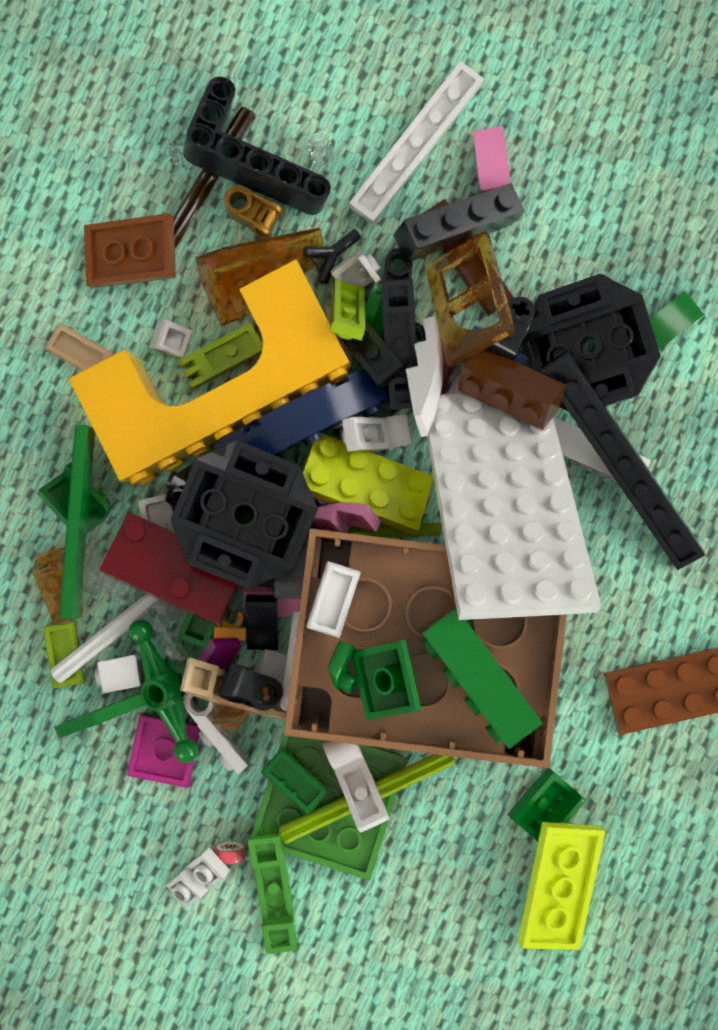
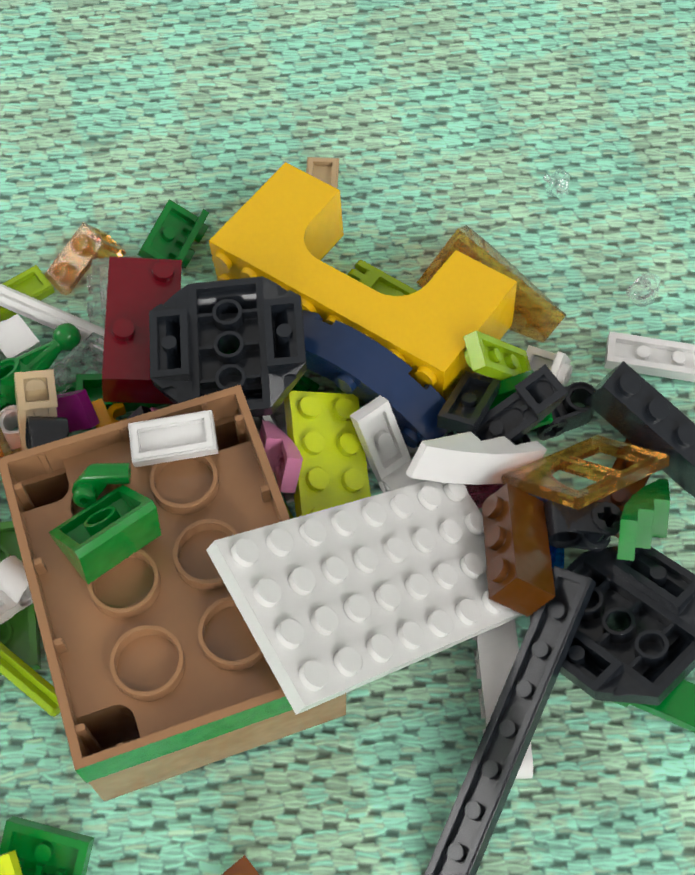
camera: 65 degrees right, 25 degrees down
(77, 522) = (146, 233): green tile -> none
(129, 251) = (439, 177): dark orange plate -> none
(170, 338) = (378, 249): white slope -> none
(206, 179) = (539, 211): dark brown axle -> none
(245, 158) = (579, 198): black beam -> none
(257, 215) = (544, 260): pearl gold piece -> none
(330, 254) = (549, 340): black piece -> none
(482, 678) = (149, 627): green brick -> none
(529, 281) = (643, 518): none -> green slope

